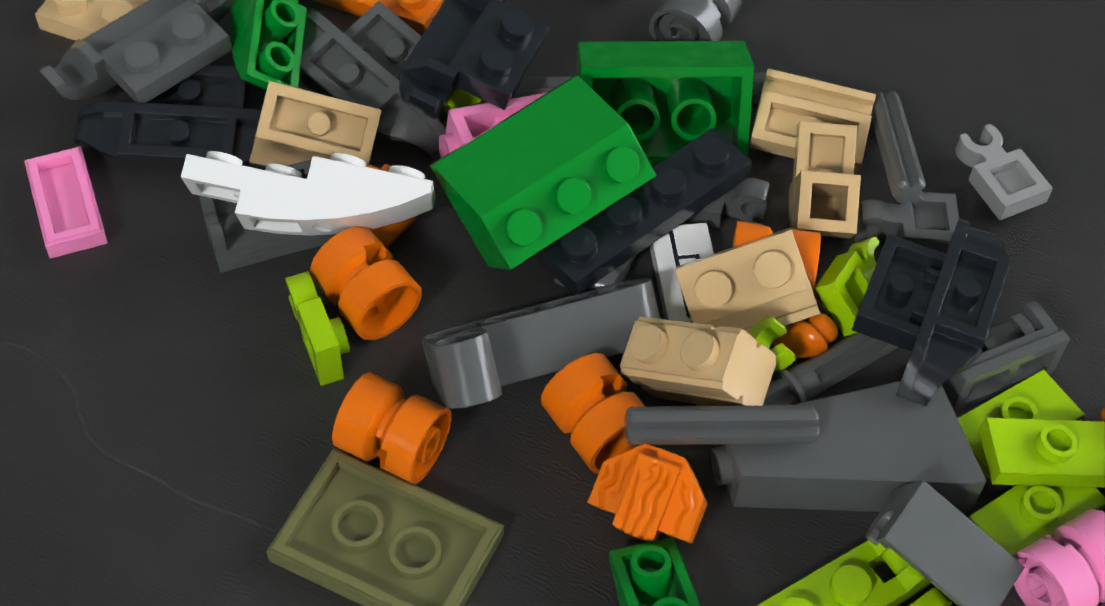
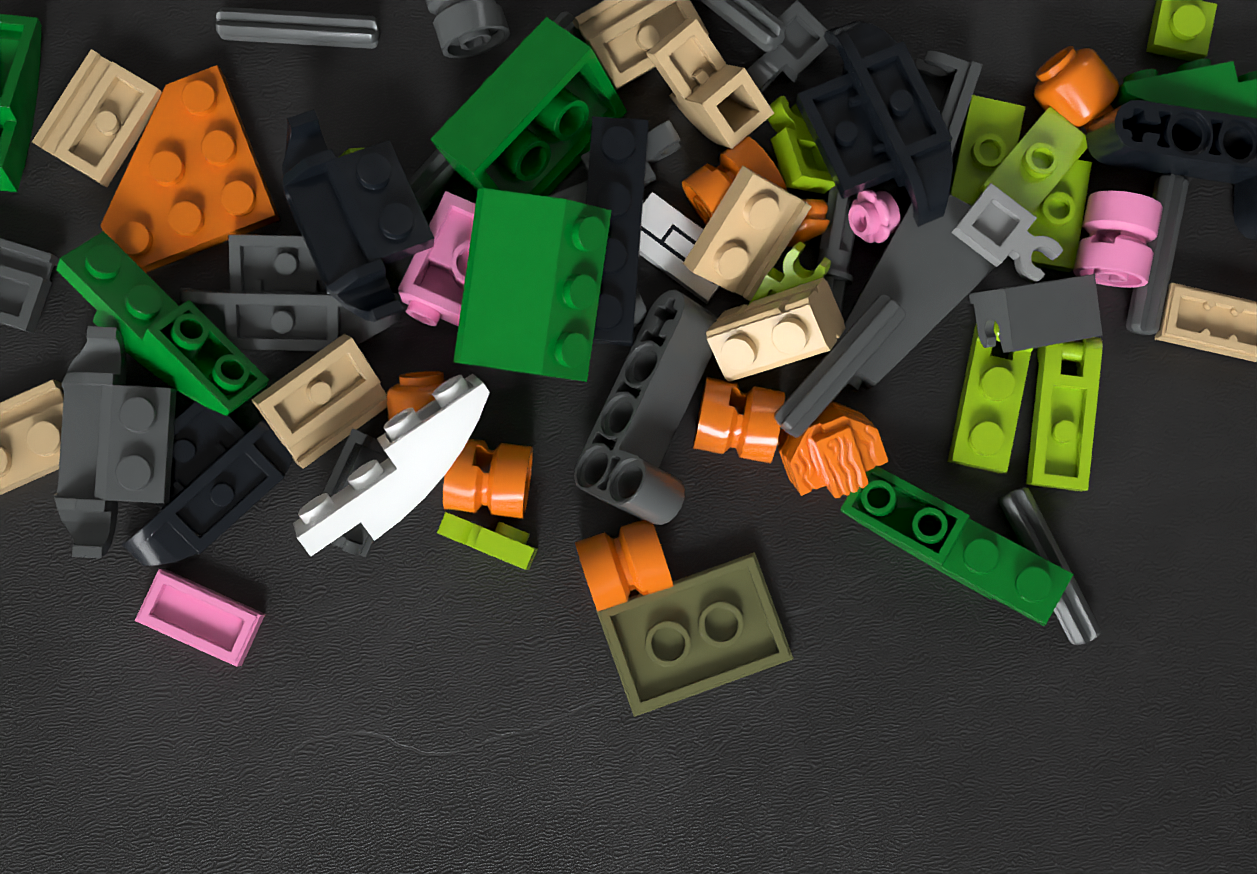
camera: 45 degrees left, 30 degrees up
(866, 366) = (874, 216): none -> bright pink plate
(968, 445) = (998, 229): none -> light grey plate

